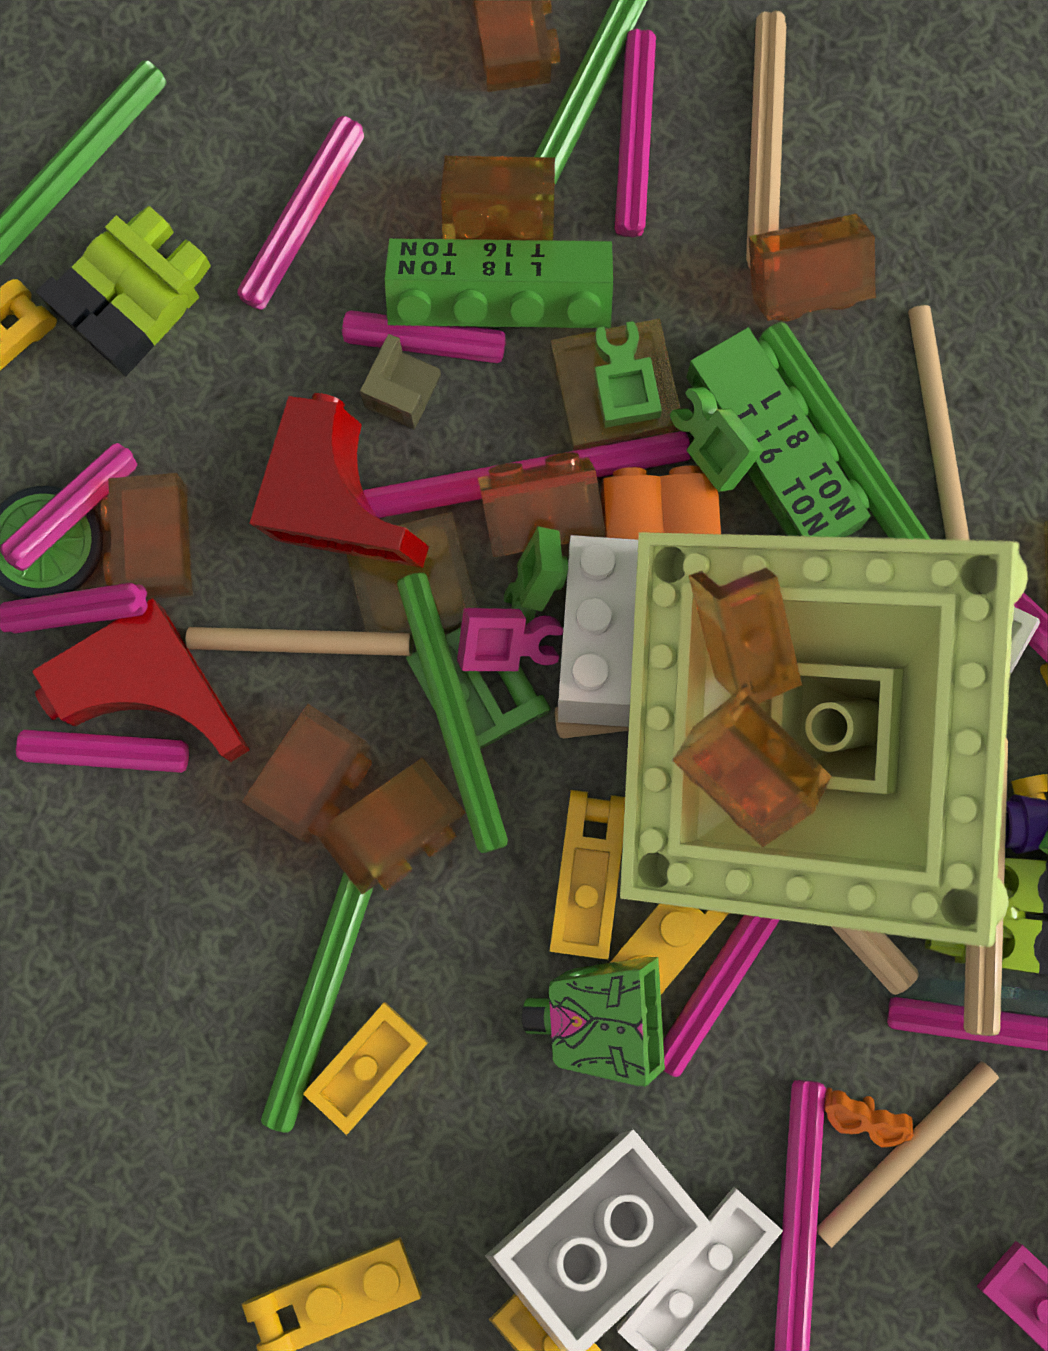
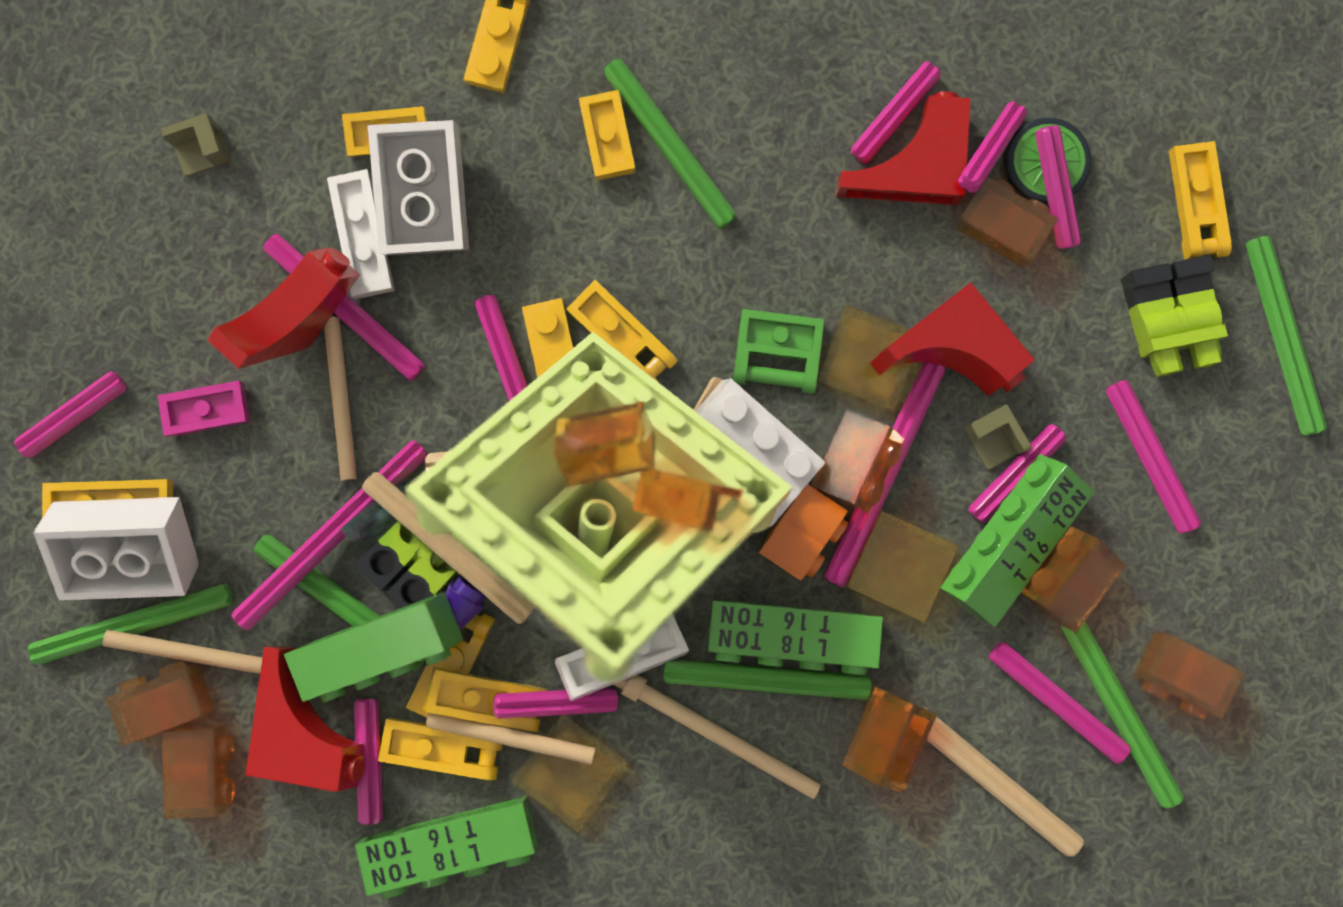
camera: 130 degrees right, 5 degrees up
(300, 641) = (878, 266): tan bar -> none
(309, 775) = (795, 216): clear orange brick -> none
(392, 827) = (729, 240): clear orange brick -> none
(452, 713) = (772, 320): bright green axle -> none
(498, 637) = (793, 378): dark pink plate -> none
(539, 573) = (814, 427): bright green plate -> none
(604, 1020) = (533, 280): bright green torso -> none
(625, 385) = (895, 565): bright green plate -> none
(721, 442) = (819, 595): bright green plate -> none
(856, 1116) = (379, 383): orange piece -> none
(870, 1285) = (291, 314): none -> red arch

